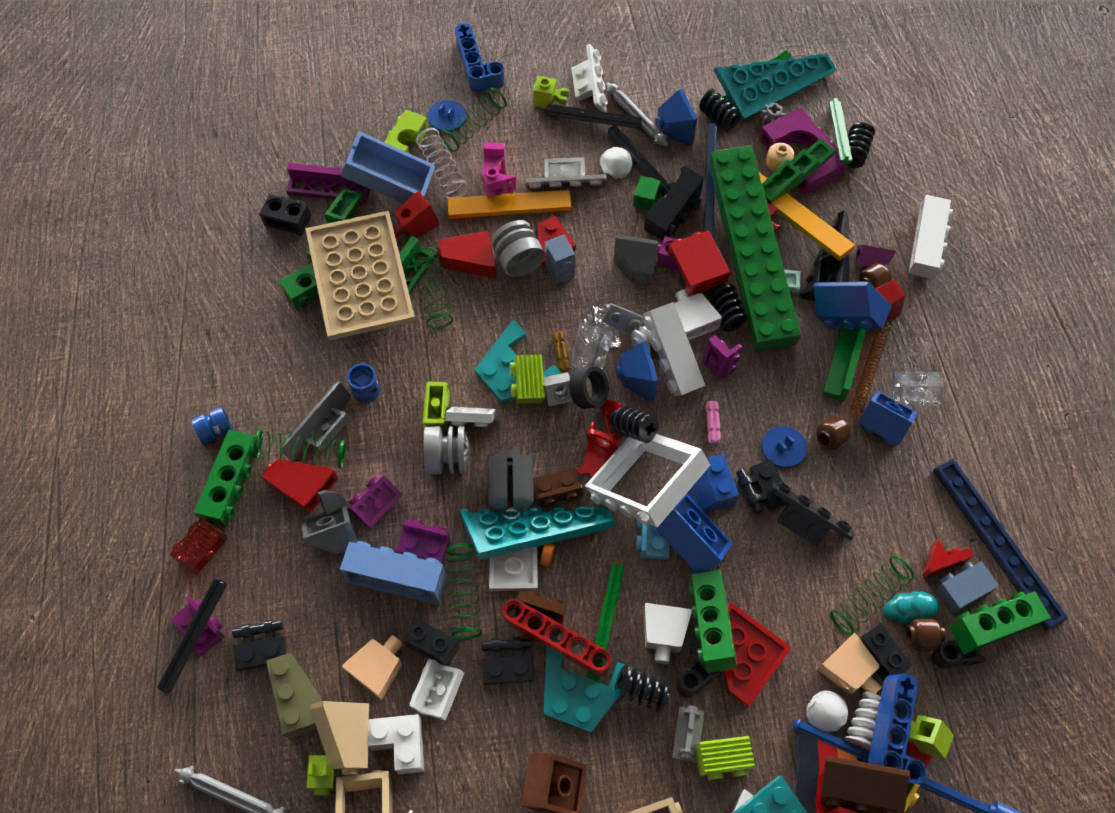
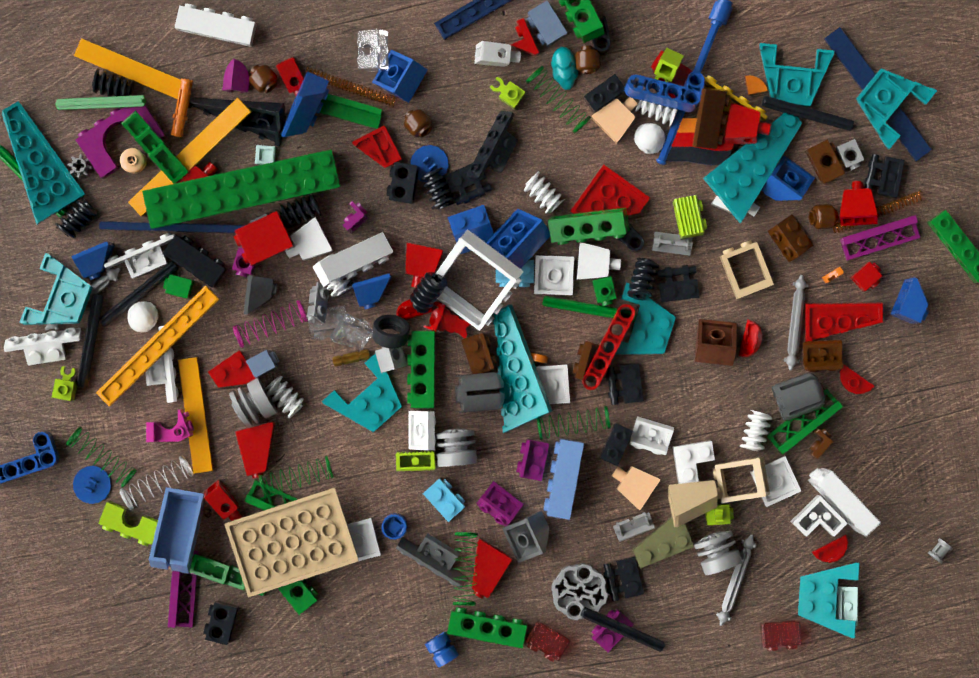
camera: 90 degrees left, 25 degrees up
(267, 579) = (593, 578): none -> light grey connector
(267, 768) = (718, 553): none -> light grey wheel
(322, 662) = (639, 525): none -> light grey hinge
(331, 501) = (503, 539): dark grey tile -> none
(352, 351) = (364, 539): none -> white plate
(388, 441) = (444, 499): none -> medium azure bracket
(520, 282) = (284, 396): none -> white piece
(528, 379) = (385, 384): lime brick -> none
(551, 431) = (427, 399): none -> green brick
(586, 167) = (157, 346): none -> light orange tile
(587, 250) = (302, 313): none -> dark pink piece
(626, 739) = (679, 289): none -> black plate
(628, 639) = (604, 290): none -> green brick
(637, 95) = (66, 298): none -> wing
(649, 579) = (554, 275): none -> white plate
(673, 159) = (144, 259): none -> white bracket
(673, 422) = (420, 261): none -> red torso
(713, 422) = (411, 224): bright pink axle -> none
(752, 568) = (543, 193): none -> white piece
(755, 447) = (437, 189): none -> black piece
(761, 419) = (408, 183): none -> black brick
(803, 392) = (379, 147): none -> red wing
(834, 203) = (182, 106): none -> orange pin
(874, 166) = (128, 68): none -> light orange tile
(875, 537) = (510, 94): none -> lime brick
(924, 521) = (487, 54): none -> white torso

